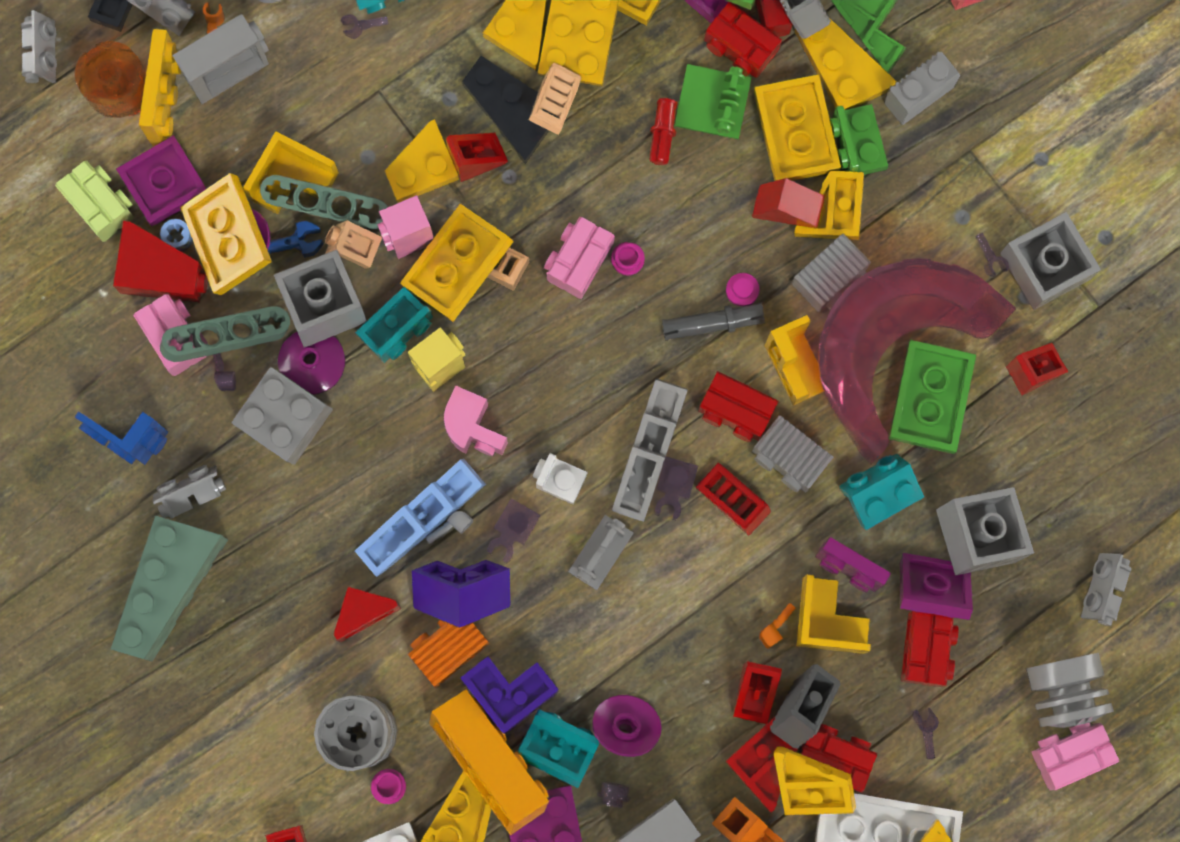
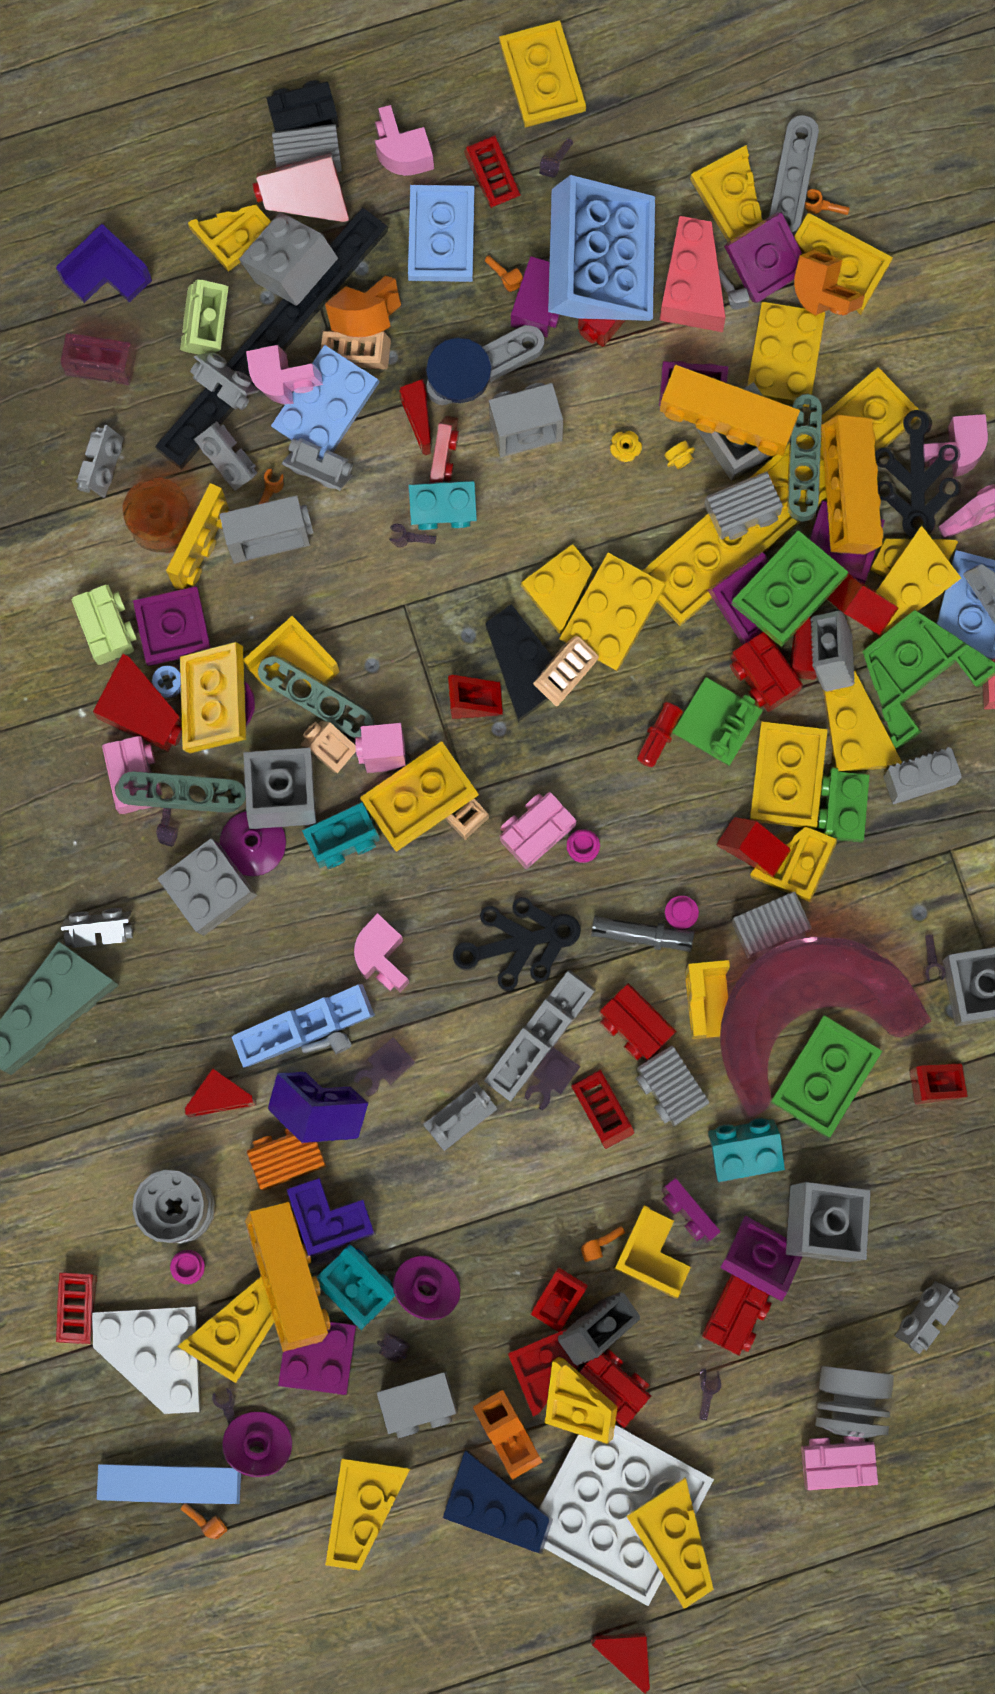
camera: 25 degrees right, 0 degrees up
(140, 442) = (68, 868): blue bracket -> none
(296, 240) = (276, 724): blue bar -> none
(421, 165) = (419, 691): yellow wing -> none
(438, 358) = (369, 882): light yellow brick -> none
(559, 478) = (445, 1033): white bracket -> none
(601, 367) = (522, 941): none -> black plant

